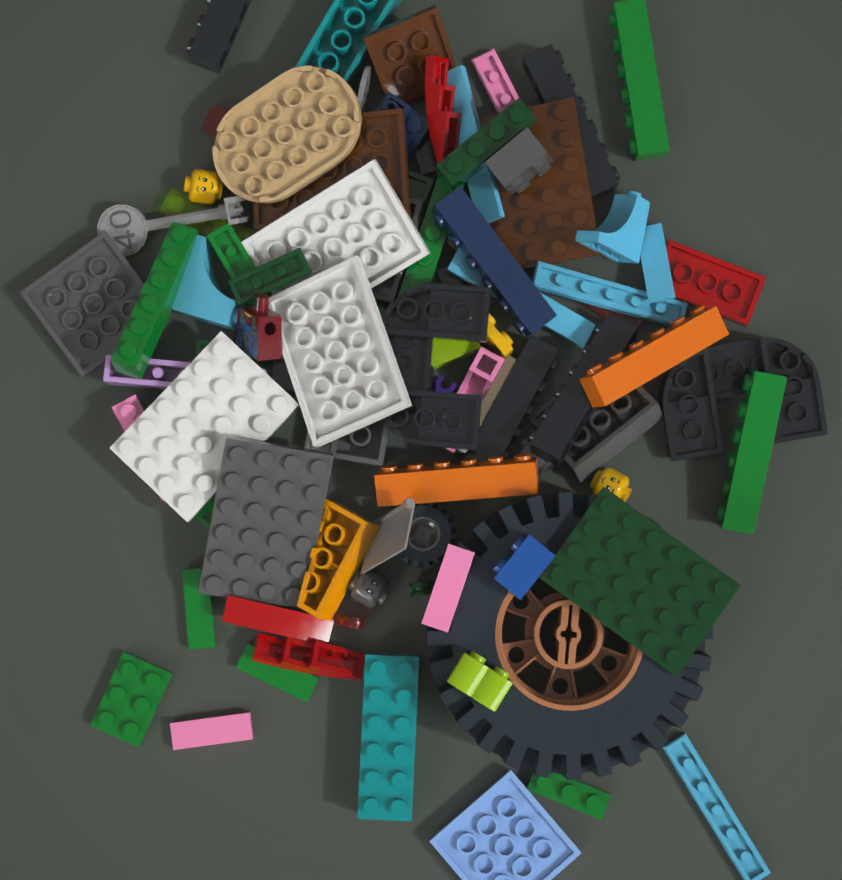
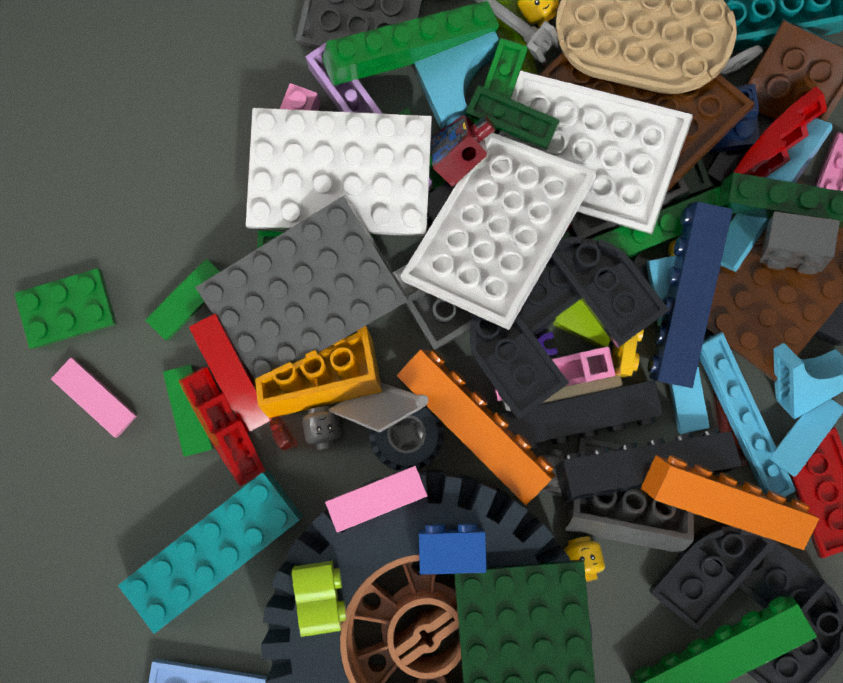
camera: 45 degrees right, 0 degrees up
(420, 588) = (359, 470): dark green bush -> none

